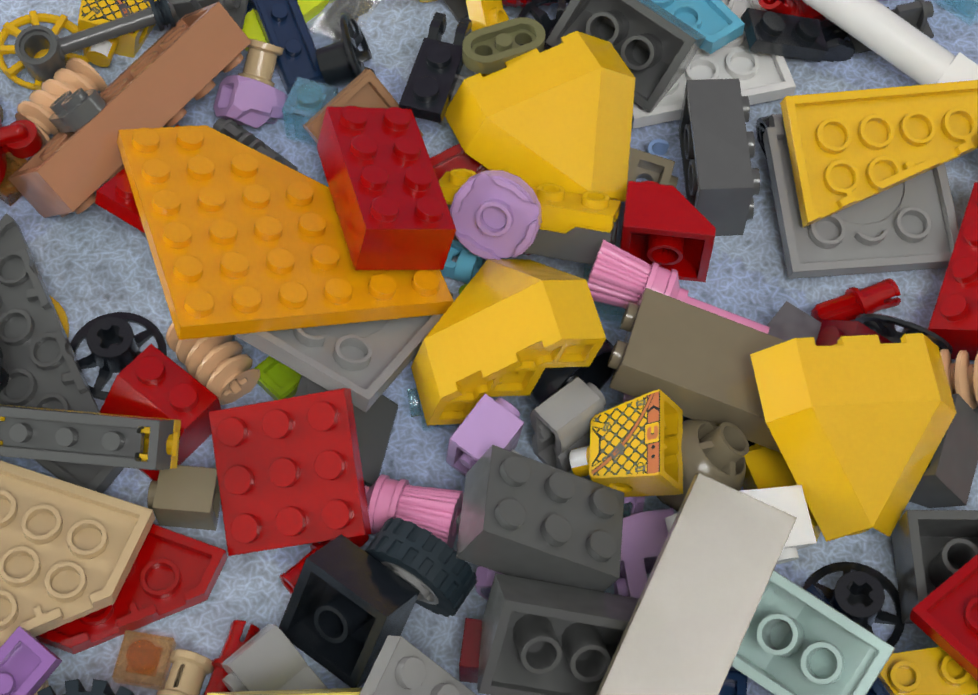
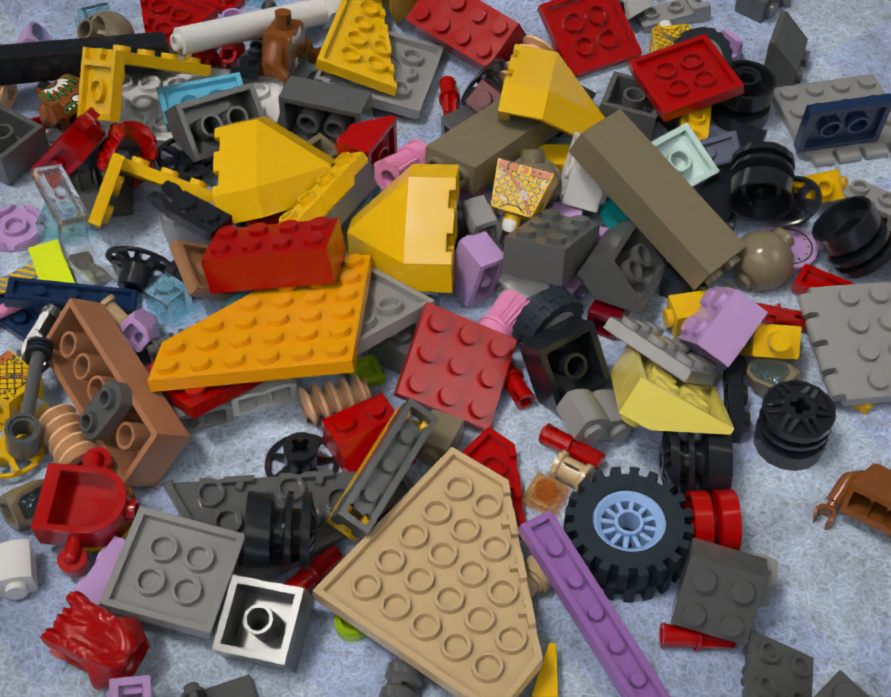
camera: 70 degrees left, 10 degrees down
(491, 46) = (198, 170): olive plate -> none
(496, 201) = (324, 198): lavender tile -> none
(817, 56) = (285, 46): none -> dark orange torso

